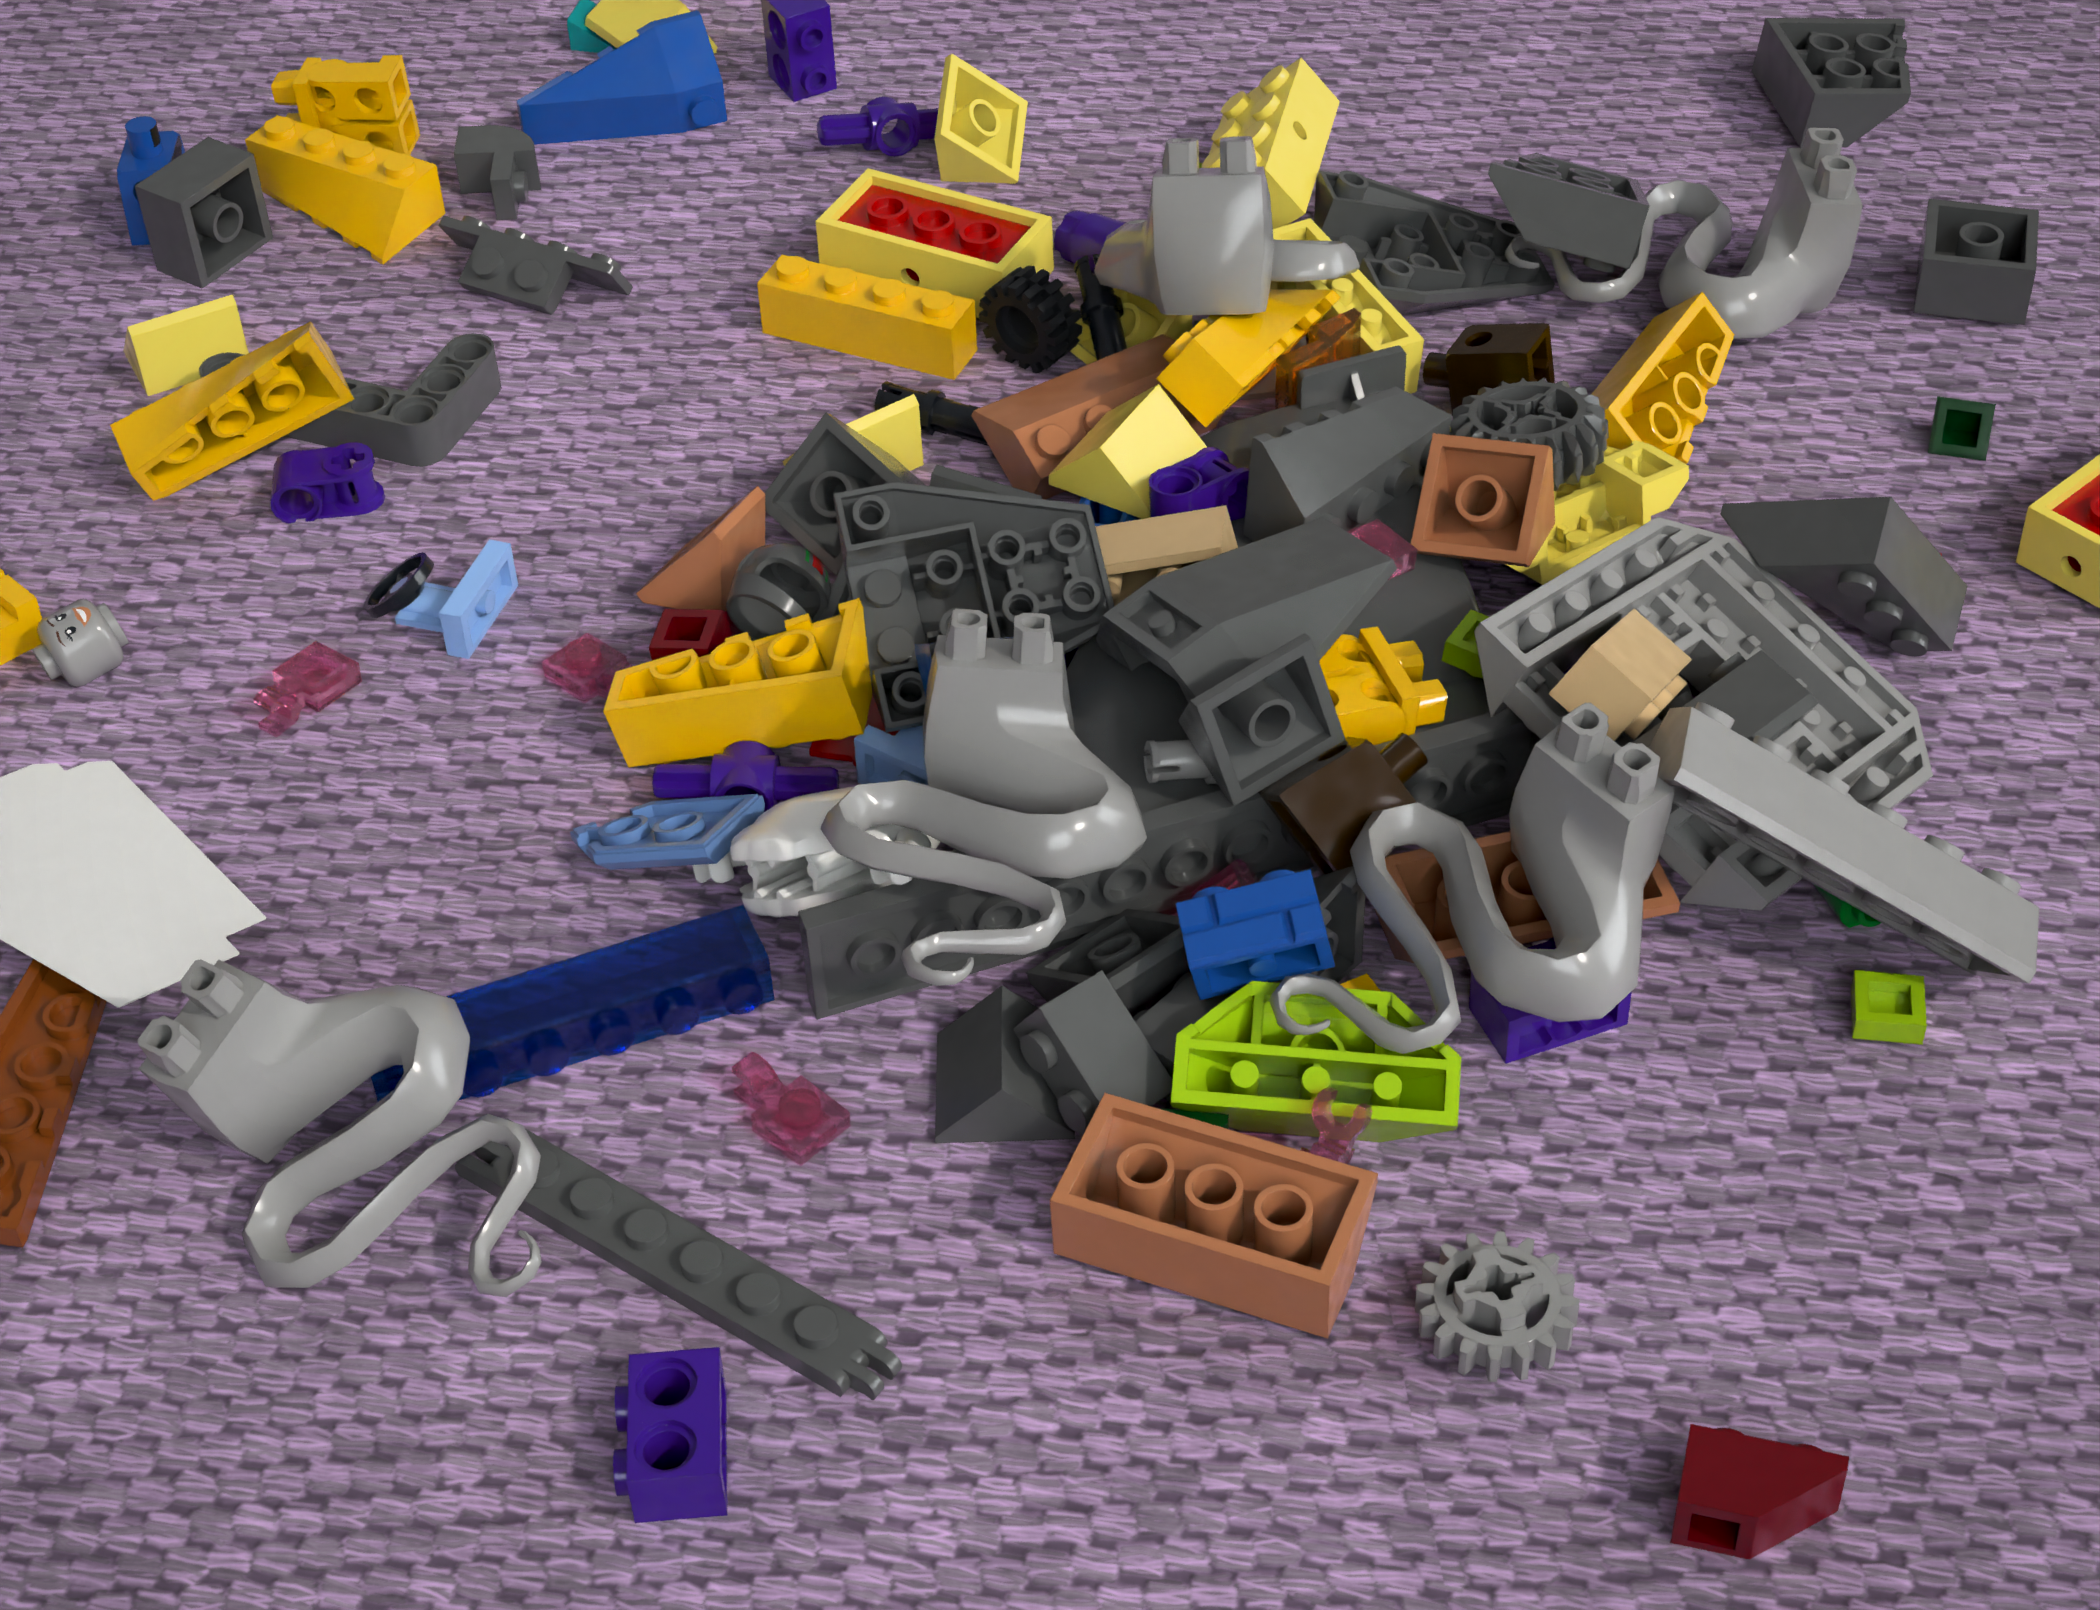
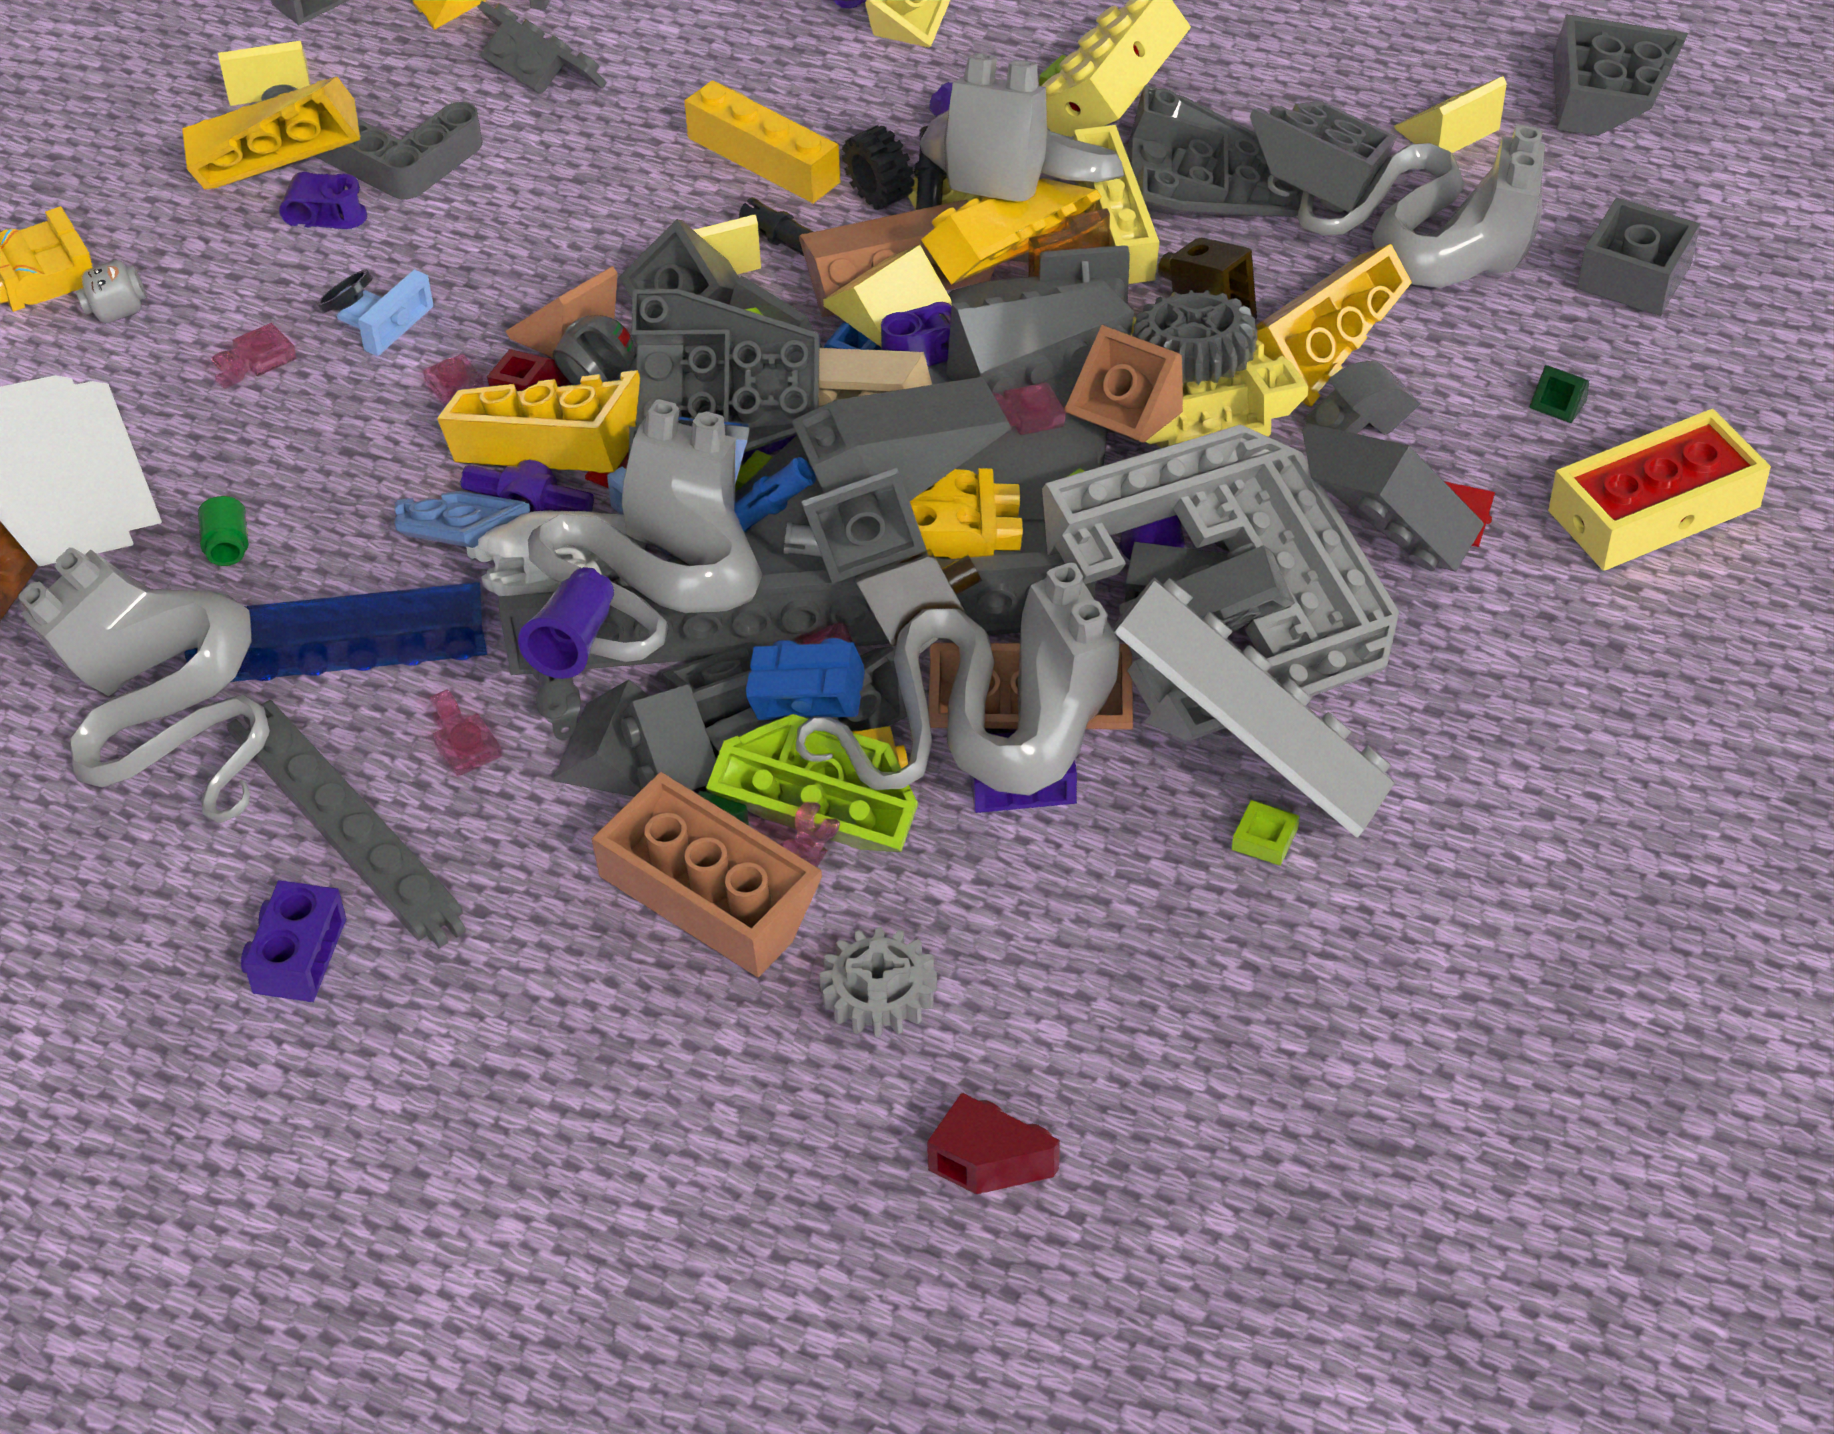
camera: 15 degrees right, 5 degrees up
(352, 912) = (223, 530): none -> green brick
(900, 1031) = (558, 702): none -> dark grey piece
(931, 236) = (832, 86): light yellow brick -> none
(948, 922) = (563, 631): none -> dark purple plant
(1140, 685) = (772, 493): none -> blue pin
(1626, 675) = (1149, 544): tan brick -> none
(1688, 149) = (1459, 119): none -> light yellow slope
(1743, 470) = (1364, 395): none -> dark grey brick

